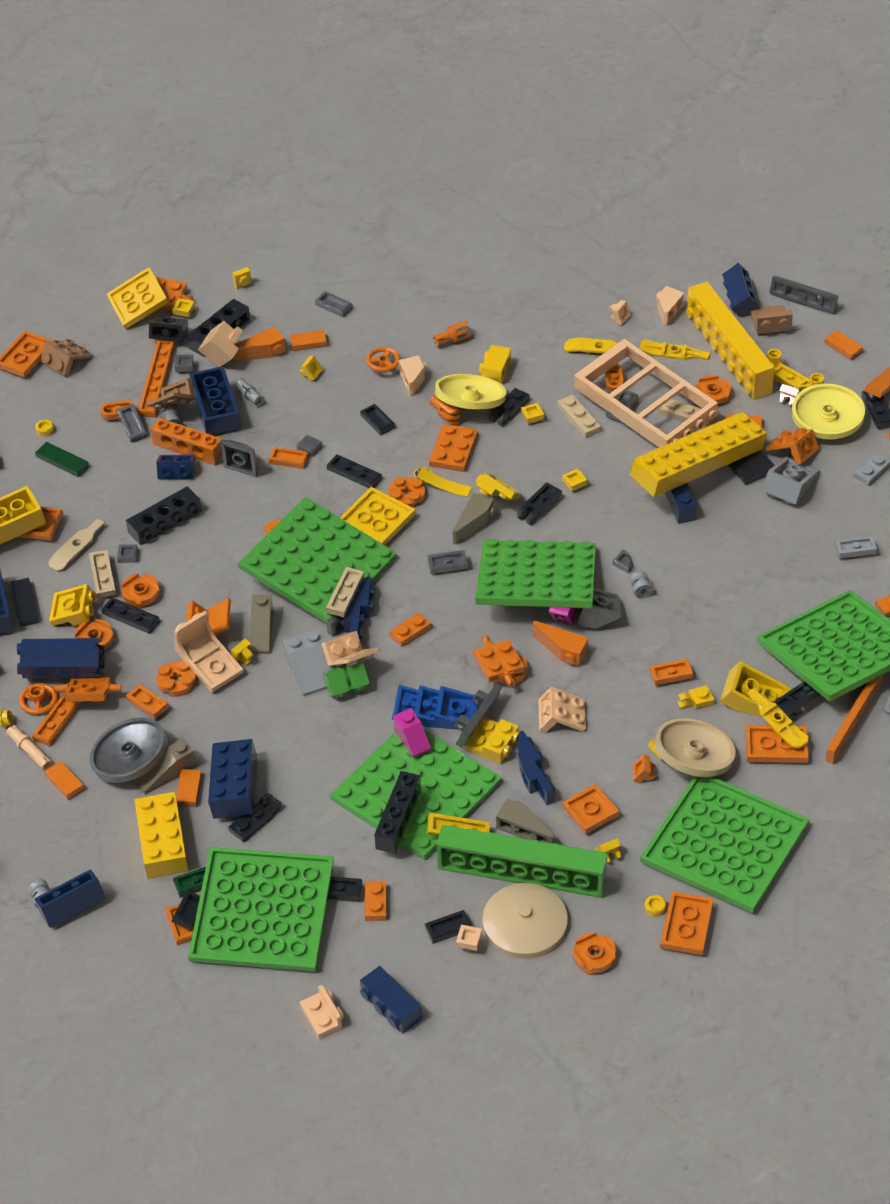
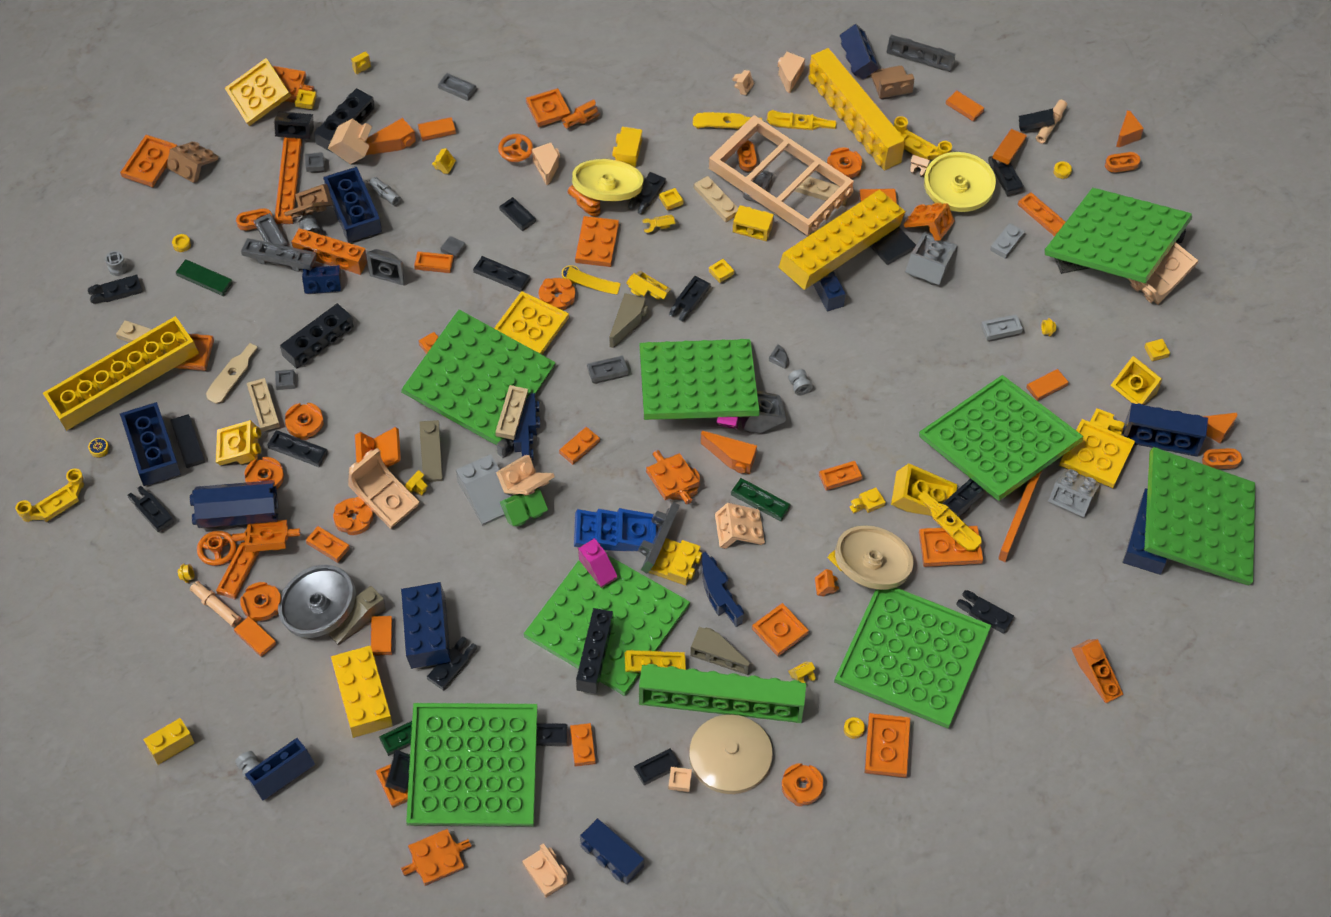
camera: 10 degrees left, 10 degrees up
(78, 757) = (264, 611): none -> orange plate
(136, 440) = (278, 254): none -> flat silver hinge
(213, 992) = (436, 857): none -> orange plate
(420, 325) = (547, 107): none -> orange plate
(522, 433) = (661, 221): none -> yellow plate
(587, 689) = (760, 499): none -> dark green tile
(612, 438) = (753, 223): none -> yellow brick
(805, 806) = (985, 611): none -> black hinge

